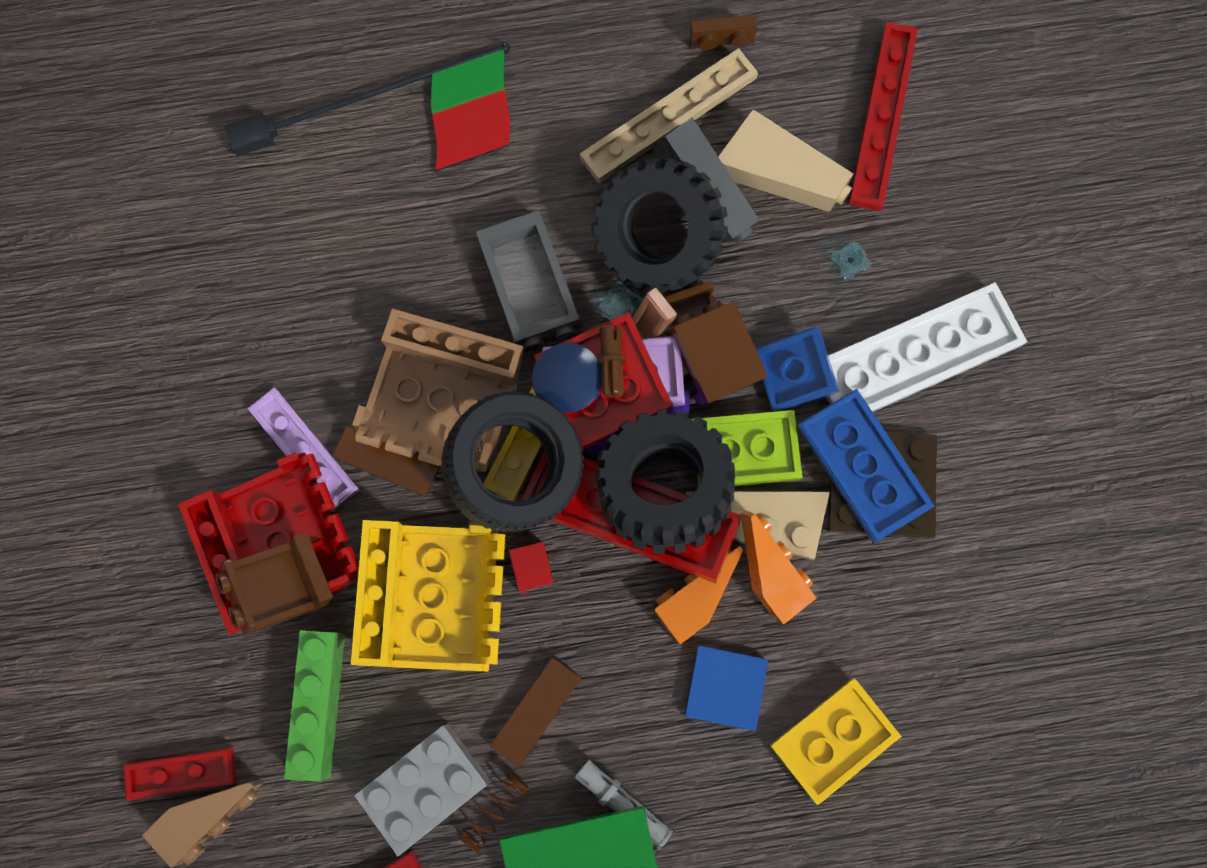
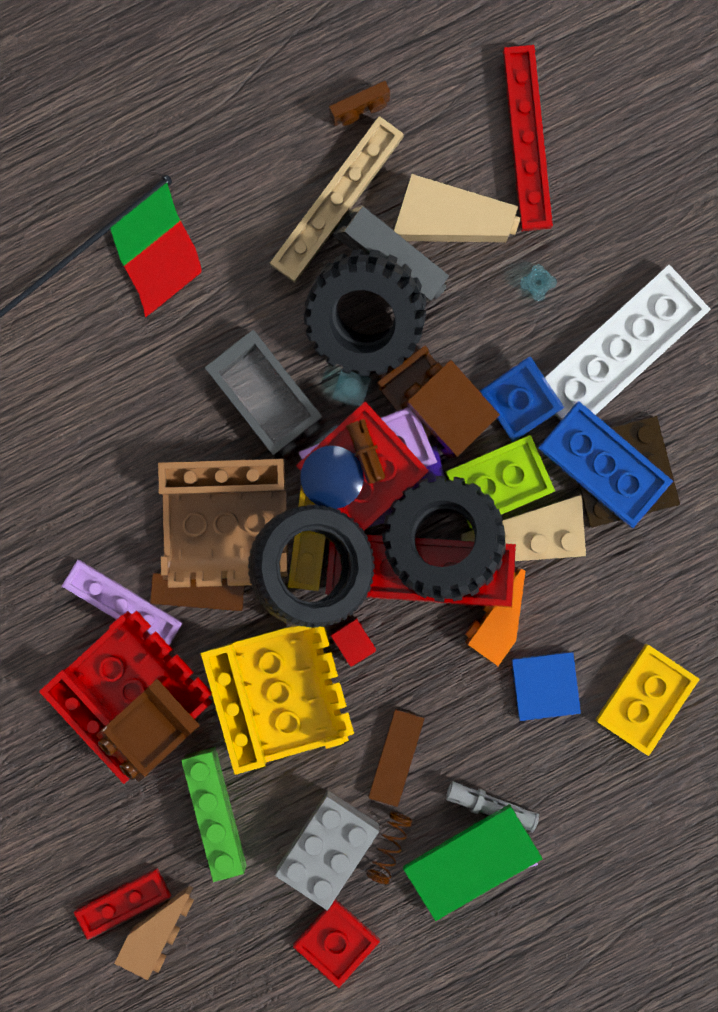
camera: 20 degrees left, 10 degrees up
(653, 315) = (385, 396): nougat tile -> none
(772, 575) = (556, 584): orange slope -> none

